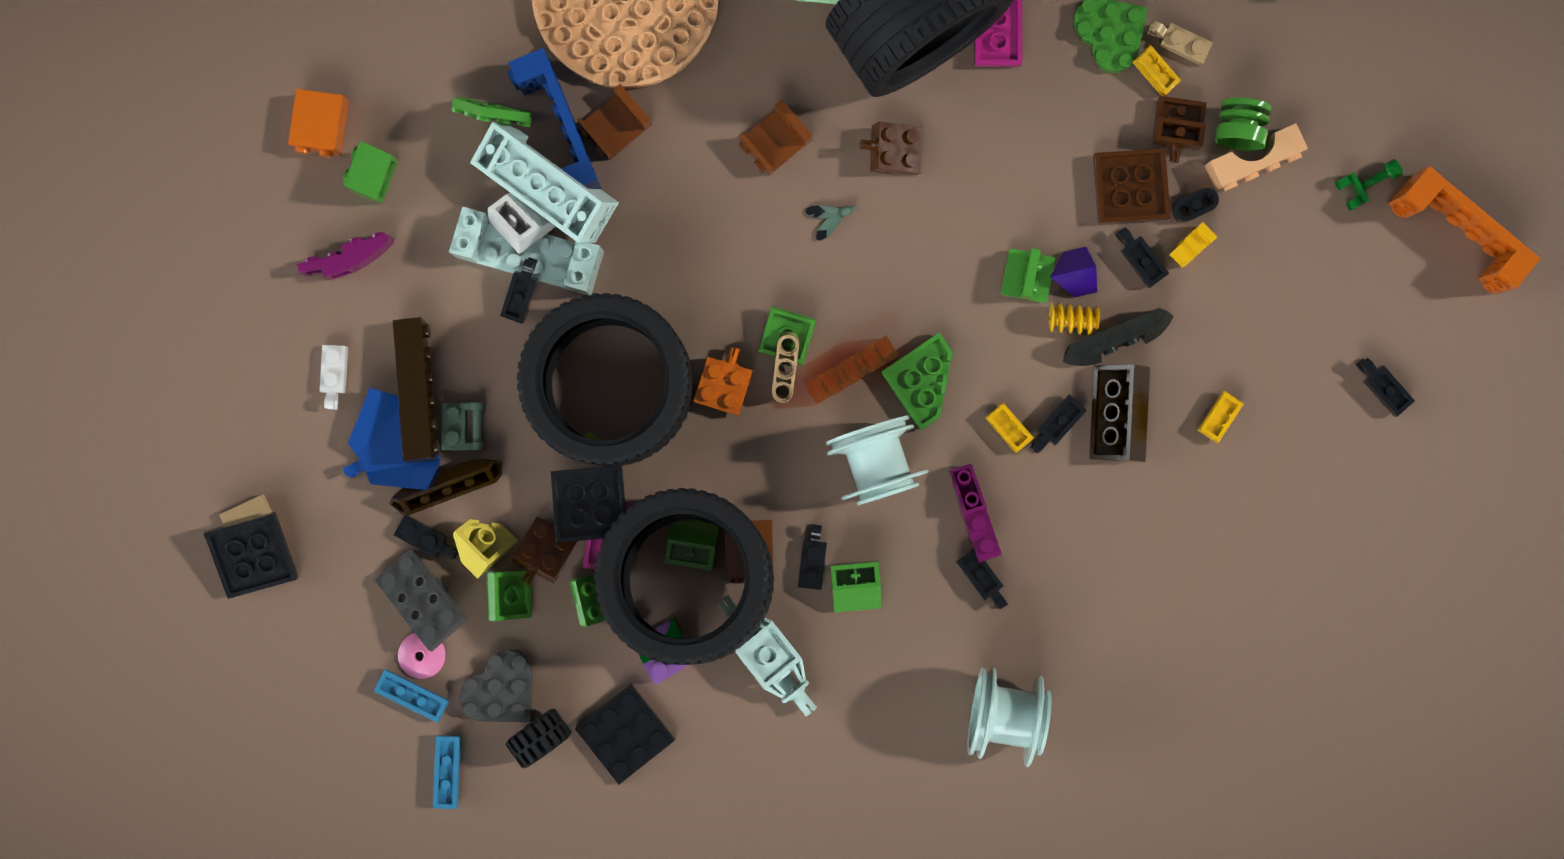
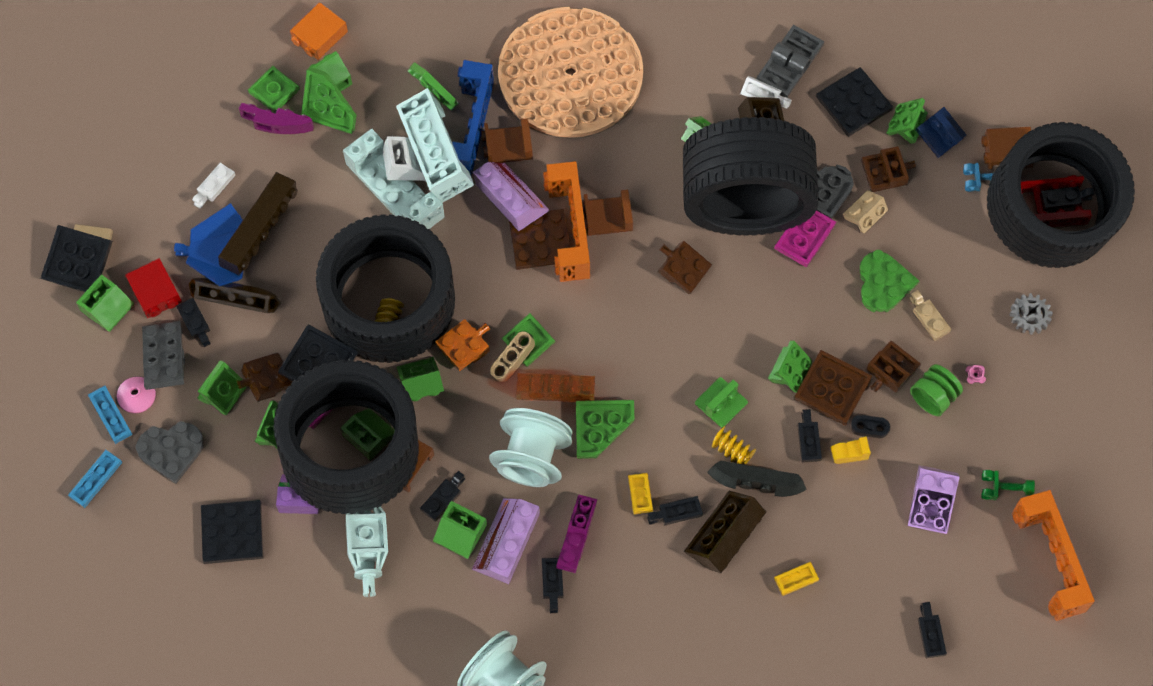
camera: 30 degrees right, 20 degrees down
(318, 222) = (273, 89): none -> bright green plate
(318, 583) = (105, 303): none -> bright green slope
(356, 532) = (153, 288): none -> red brick
(389, 206) = (326, 103): none -> bright green plate
(455, 426) = (266, 265): sand green plate -> none
(482, 545) = (228, 346): light yellow slope -> none
(520, 292) = (372, 204): black plate -> none
(538, 738) = (172, 490): black tyre -> none
(625, 407) = (388, 310): none -> yellow piece
(659, 183) = (509, 194): none -> lavender slope
(704, 450) = (421, 378): none -> bright green slope
(708, 131) = (562, 181): none -> orange plate
(722, 212) = (540, 240): none -> reddish brown plate
(831, 214) = (613, 285): sand green piece -> none
(907, 564) = (506, 539): none -> lavender slope
(1075, 192) = (791, 366): none -> bright green bracket
(1076, 272) = (755, 420): dark purple slope -> none
(1156, 71) = (899, 323): yellow plate -> none
(1273, 77) = (979, 370): none -> bright pink plate
(1282, 146) = (909, 418): light nougat arch -> none
(1305, 242) = (933, 499): none -> lavender slope

